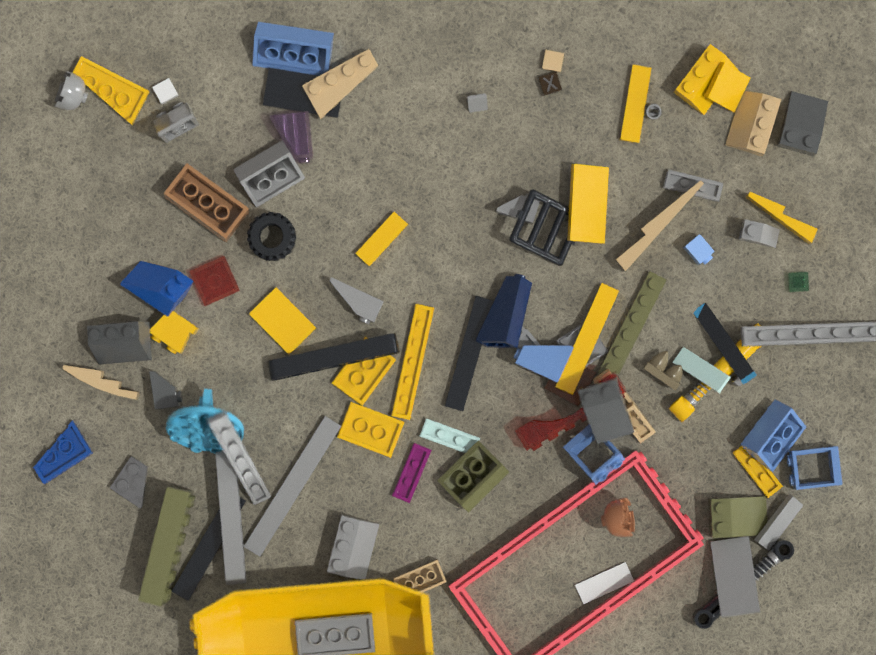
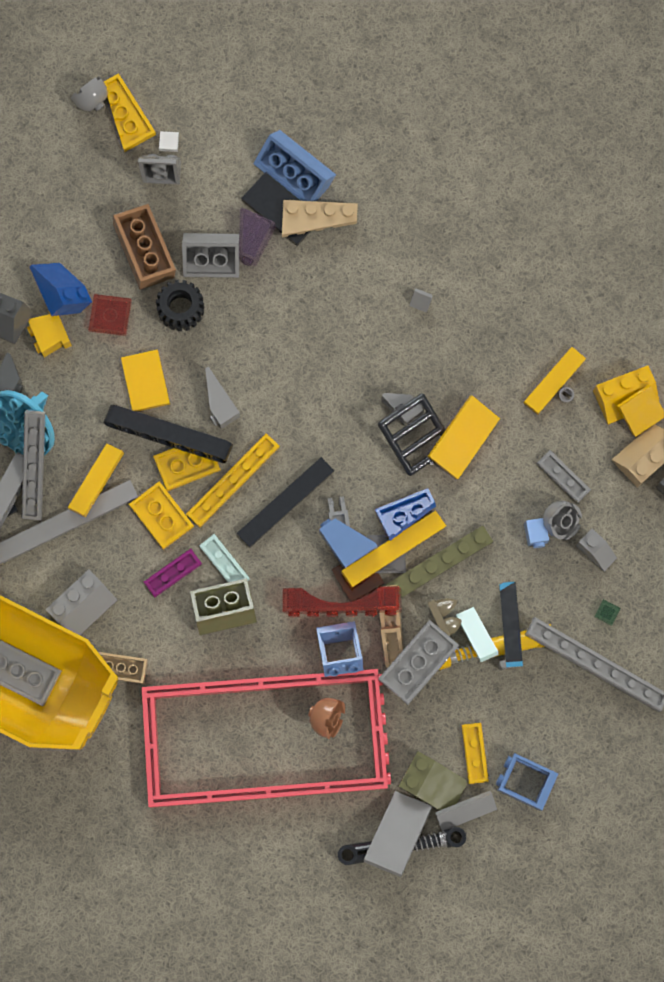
camera: 30 degrees right, 10 degrees down
(296, 434) = (95, 480): none -> yellow tile
(381, 239) = (271, 363): yellow tile -> none
(507, 314) = (337, 486): dark blue slope -> none
(550, 83) = (491, 321): dark brown tile -> none
(553, 61) = (505, 305): tan tile -> none
(576, 301) = (404, 512): none -> wing
(604, 583) = (279, 770): white sticker -> none
(606, 410) = (372, 614): dark grey slope -> none
(655, 226) = (511, 489): tan slope -> none
(667, 424) = (418, 662): none -> light grey tile
(715, 226) = (562, 519): none -> light grey cylinder
(773, 435) = (507, 730): medium blue slope -> none
(776, 210) = (622, 538): yellow slope -> none

